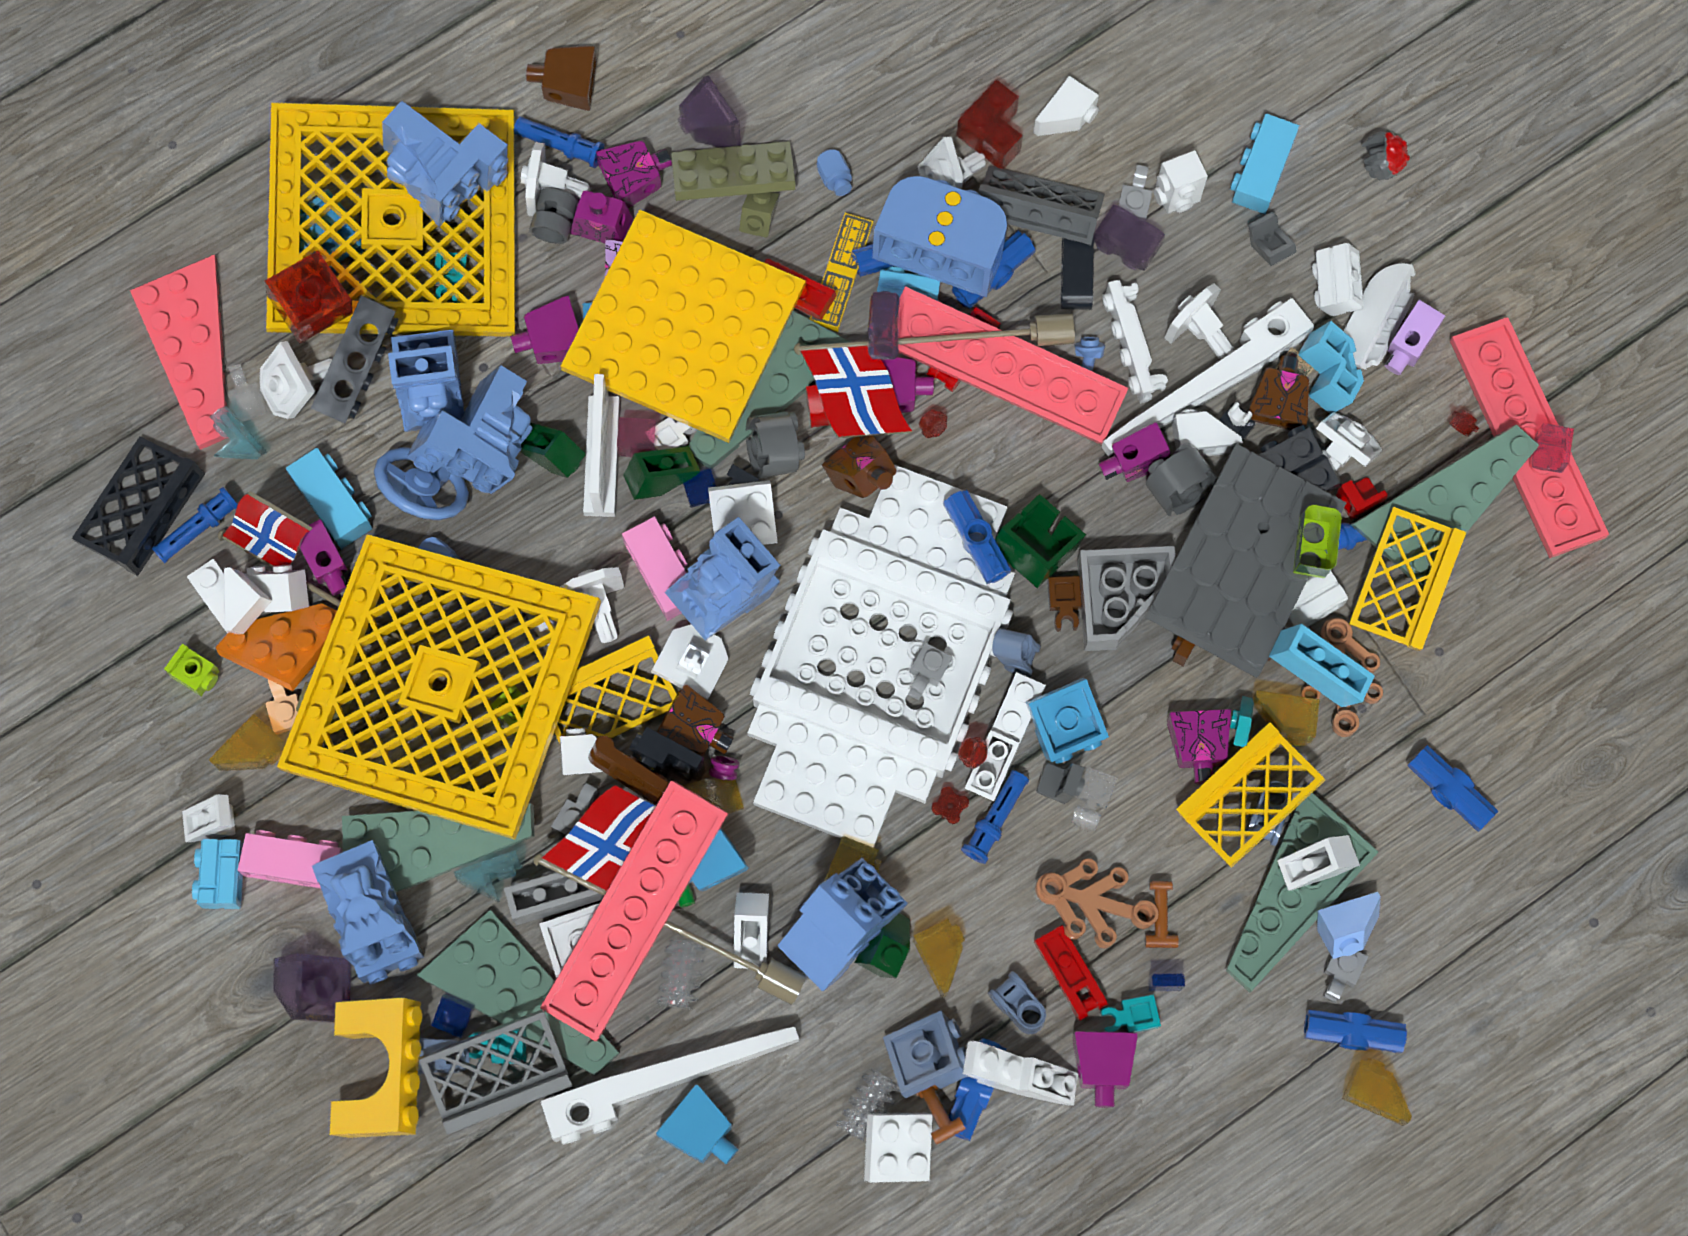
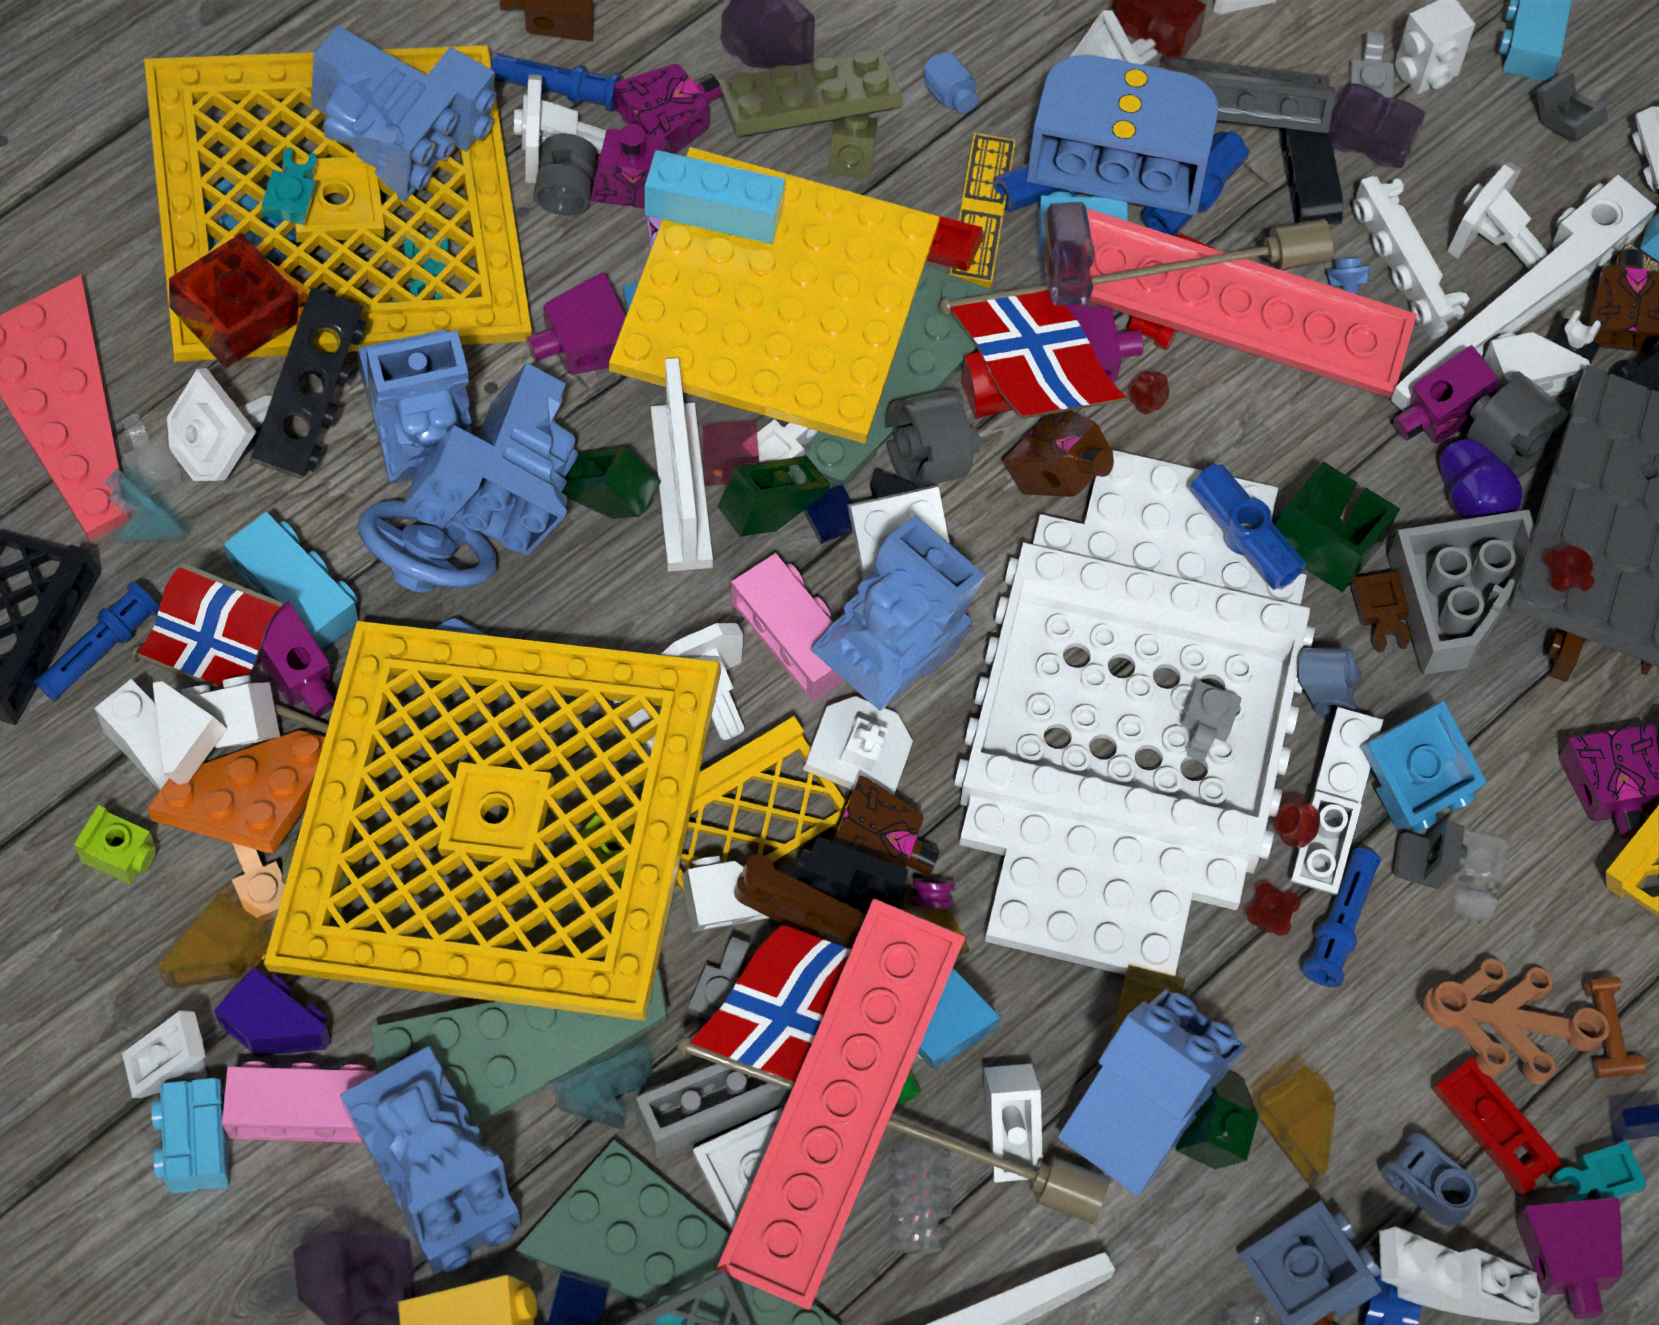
camera: 10 degrees left, 10 degrees down
(276, 802) = (269, 1020): none -> dark purple slope
(360, 215) = (290, 191): none -> teal plate
(647, 254) = (714, 196): none -> medium azure brick
(1148, 518) = (1479, 480): none -> dark purple piece
(1196, 592) = (1577, 562): none -> clear red plate

